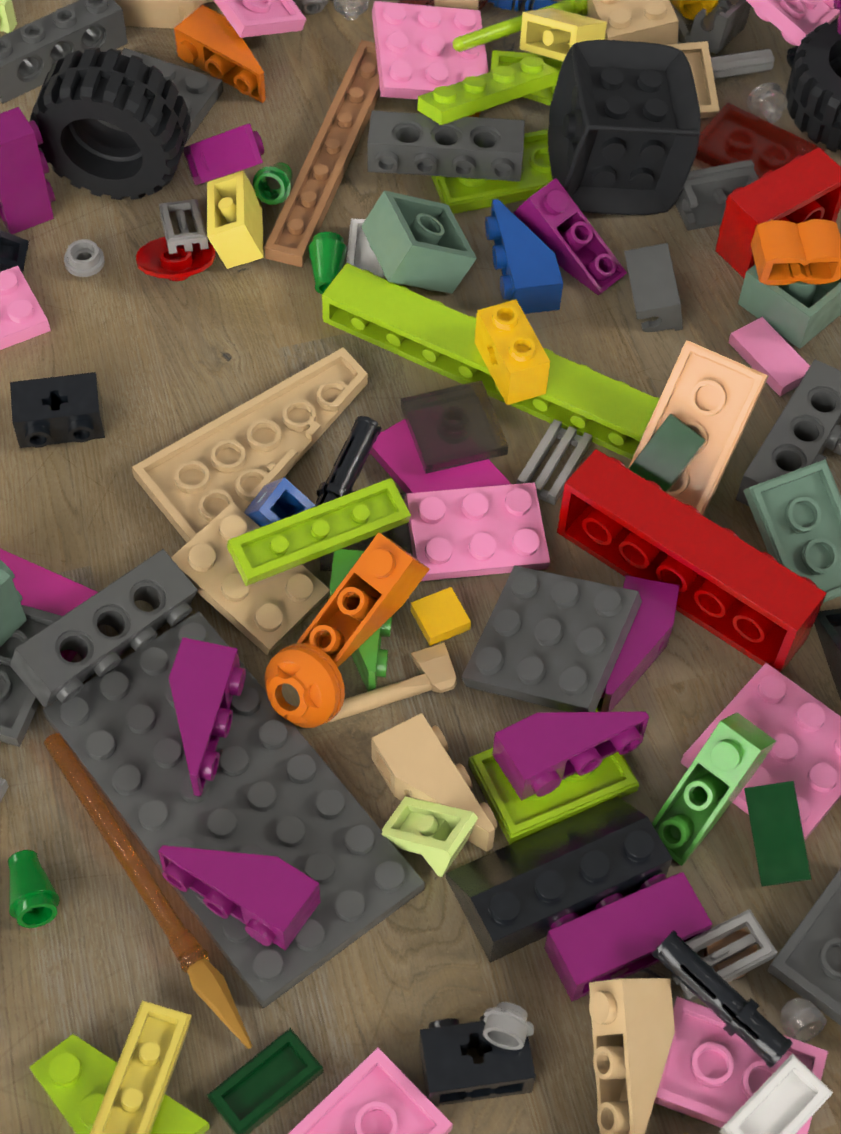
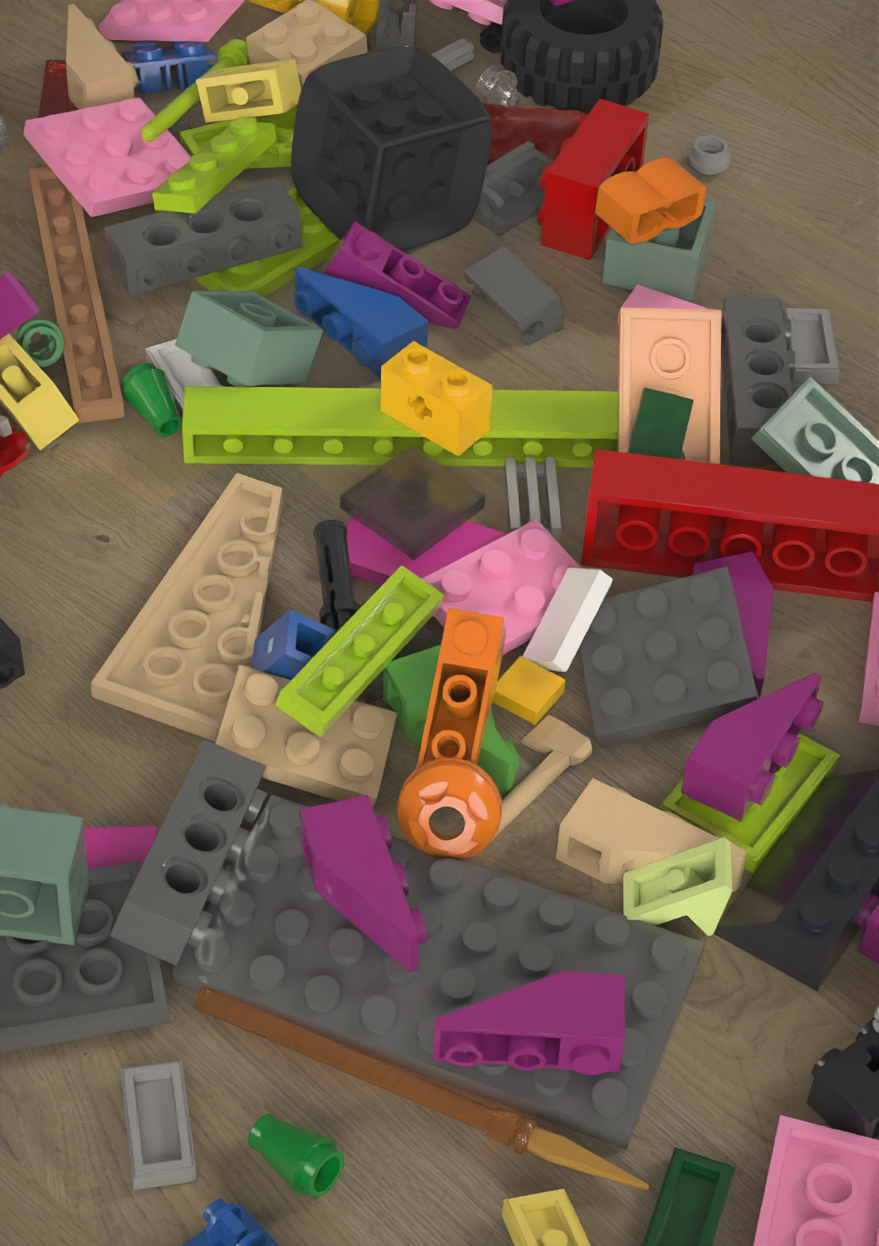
camera: 30 degrees left, 10 degrees down
(498, 575) = (567, 618): none -> white tile

